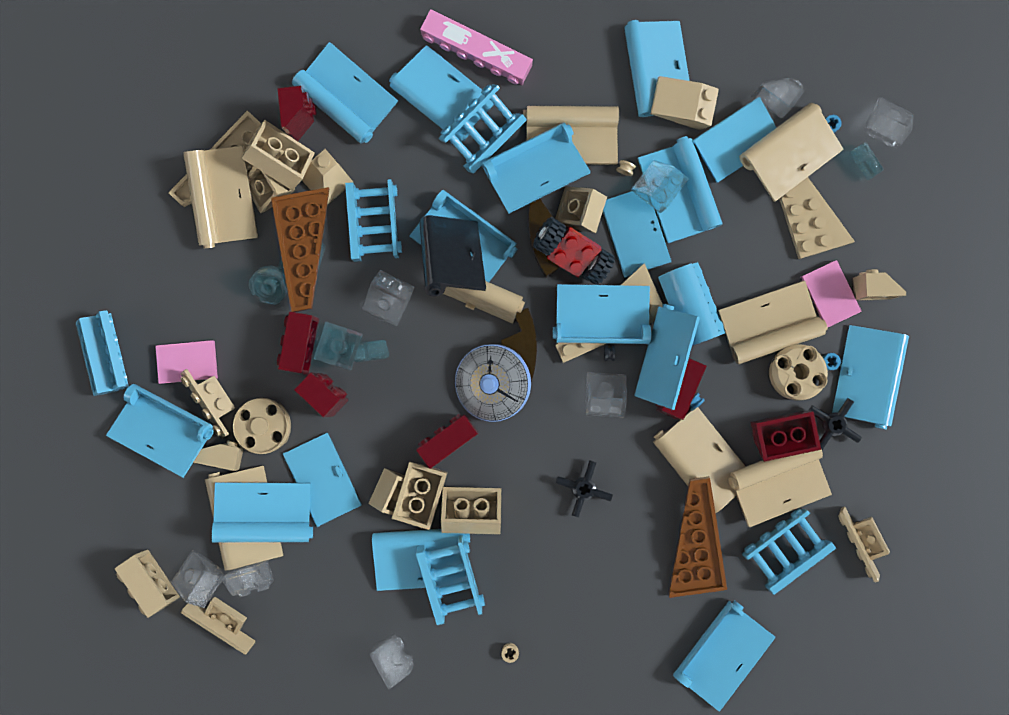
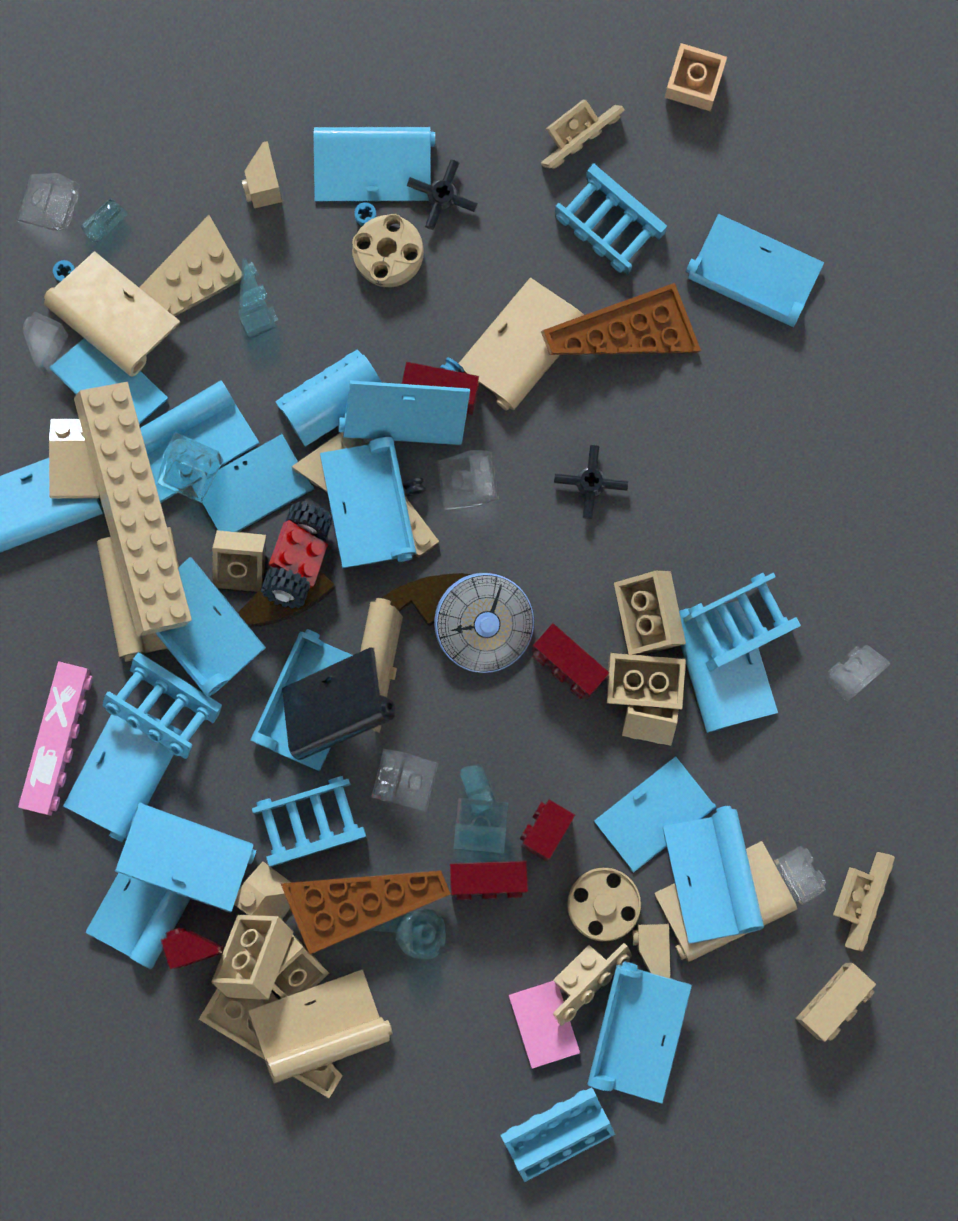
camera: 105 degrees left, 5 degrees down
(197, 579) = (816, 942): clear slope -> none
(373, 114) = (185, 857): none -> medium azure door
(515, 655) = (815, 522): tan bush -> none
(626, 168) = (174, 515): tan bush -> none
(637, 133) = (132, 509): none -> tan brick
(767, 329) = (343, 302): tan door -> none
(768, 485) = (530, 245): tan door -> none
(775, 259) = (252, 307): none -> clear light blue slope
(786, 435) = (469, 250): dark red slope -> none
(831, 294) = (280, 230): bright pink tile -> none
(890, 645) = (695, 77): none -> light nougat brick

